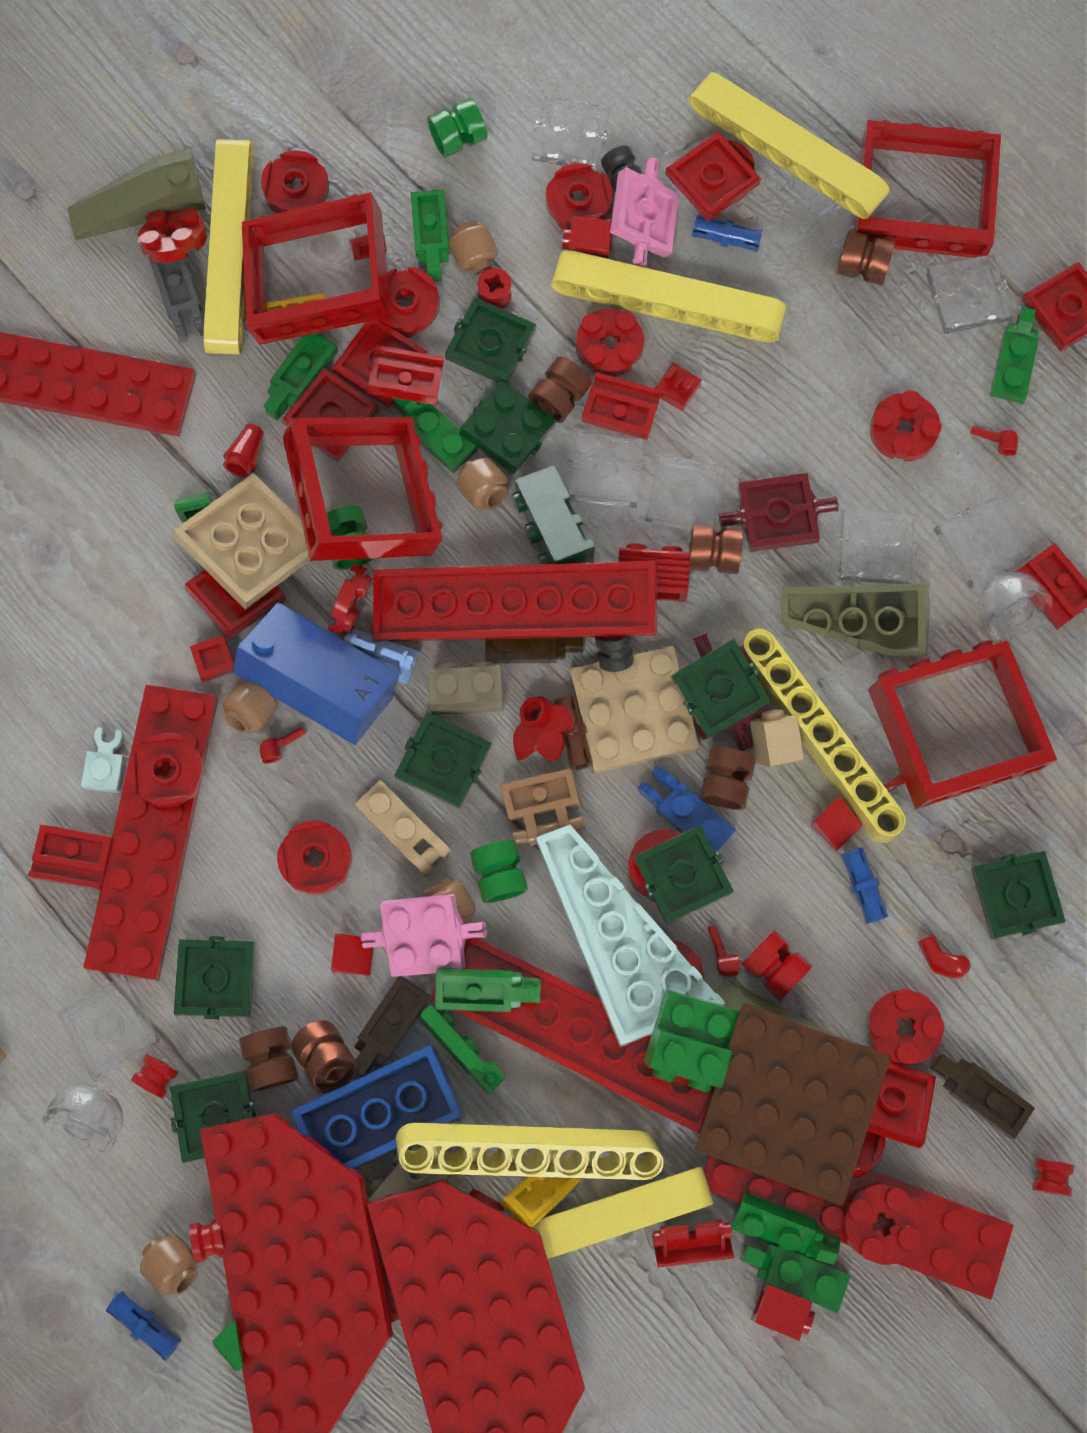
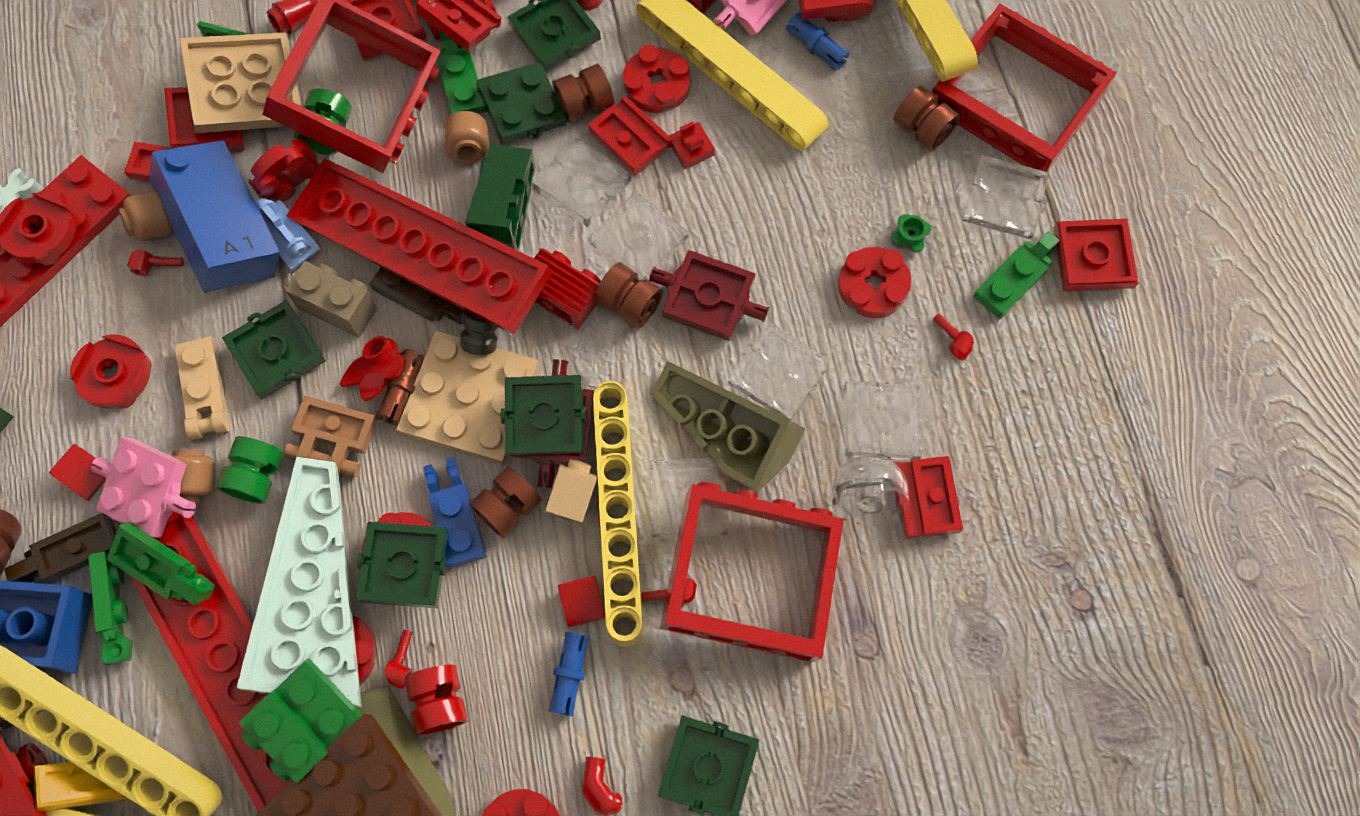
camera: 30 degrees right, 5 degrees down
(913, 358) = (915, 224): none -> green plate

